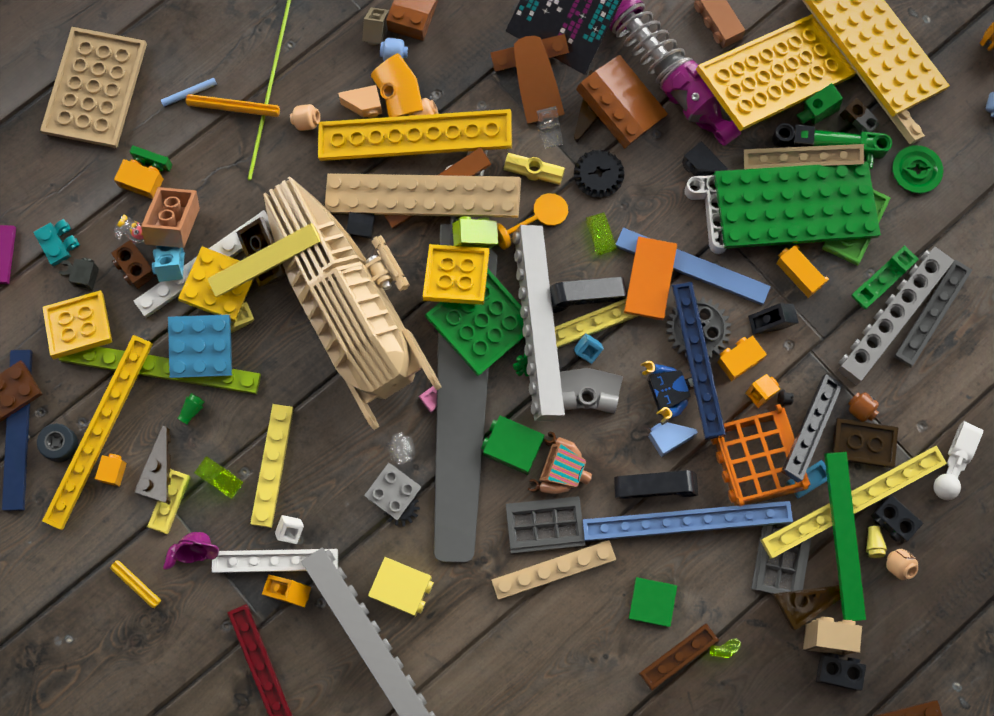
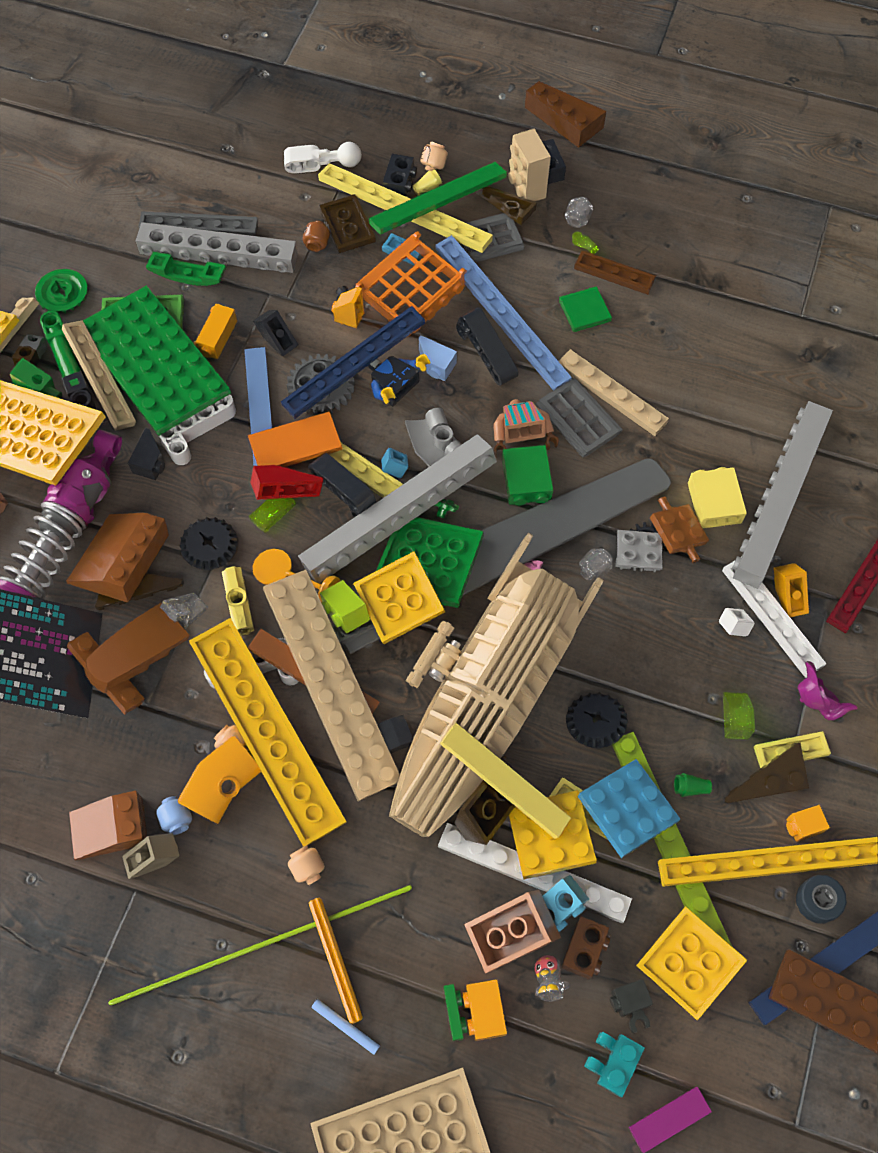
camera: 120 degrees left, 10 degrees down
(272, 466) = (689, 674): light yellow plate -> none
(281, 386) = (599, 734): none -> black gear
(362, 101) = (253, 812): light nougat slope -> none
(392, 537) = (679, 529): none -> dark orange plate
(615, 244) = (282, 482): none -> red slope
(741, 358) = (327, 338): light orange brick -> none
(762, 663) = (578, 212): none -> clear head
(811, 428) = (362, 254): plate -> none

